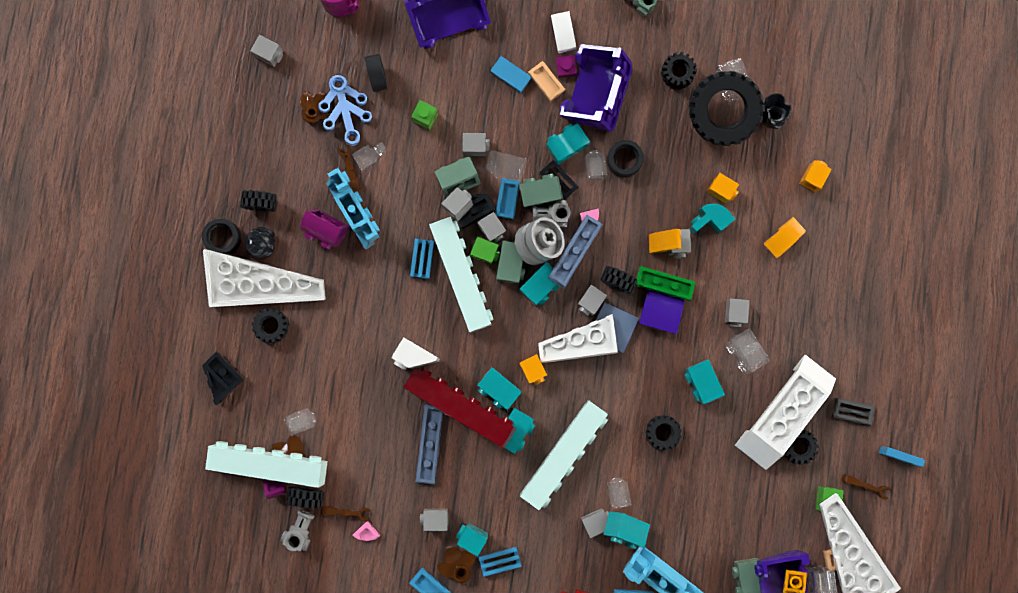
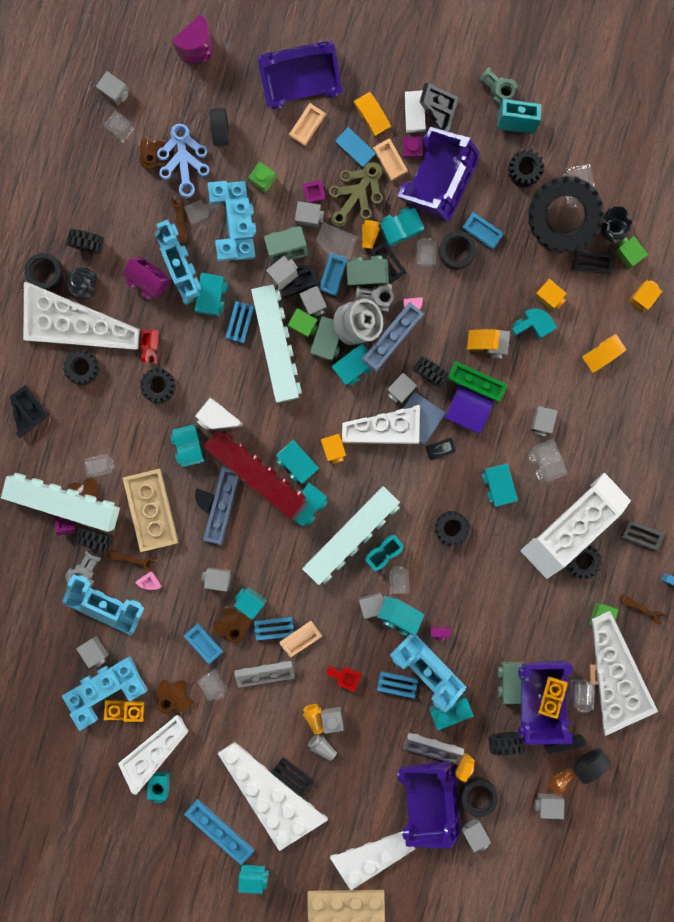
camera: 15 degrees right, 5 degrees up
(277, 86) = (118, 126): none -> clear brick
(322, 566) = (101, 607): none -> medium azure bracket
(334, 291) = (148, 343): none -> red plate
(341, 324) = (146, 385): none -> black tyre
(358, 459) = (150, 510): none -> tan plate
(387, 388) = (188, 446): none -> teal brick
(390, 236) = (211, 295): none -> teal brick
(406, 158) = (238, 220): none -> medium azure bracket
(410, 440) = (204, 499): none -> black tile
(460, 59) = (307, 124): none -> light nougat tile
(477, 122) = (314, 191): none -> magenta plate
(519, 115) = (358, 192): none -> olive plant
(522, 39) = (372, 113): none -> light orange slope
(528, 568) = (300, 639): none -> light nougat tile
(537, 154) = (369, 233): none -> light orange cone
(586, 22) = (439, 105): none -> wing
(596, 471) = (379, 556): none -> teal brick
(639, 355) = (440, 449): none -> black sticker
(647, 136) = (482, 231): none -> dark azure tile
(664, 22) = (519, 116): none -> teal brick
(668, 540) = (440, 633): none -> magenta plate
(742, 152) = (576, 260): none -> black tile
(793, 136) = (630, 252): none -> bright green brick

